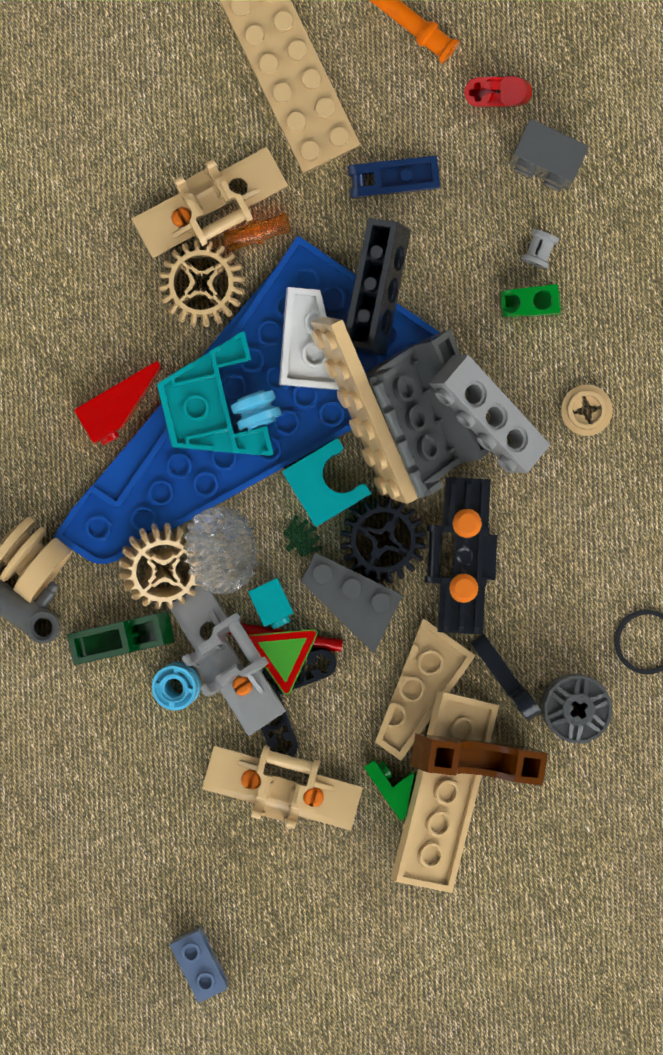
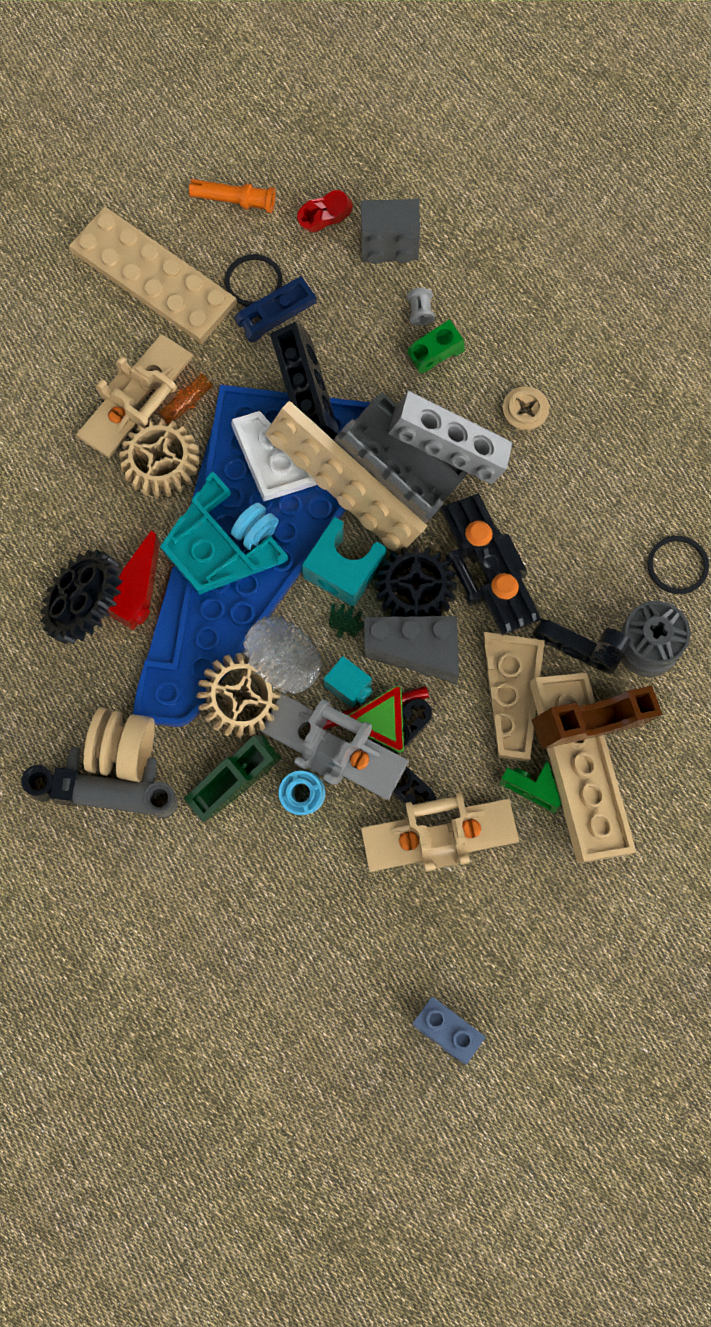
camera: 30 degrees left, 15 degrees down
(59, 396) = (81, 596): none -> black gear
(383, 101) = (246, 258): none -> black piece

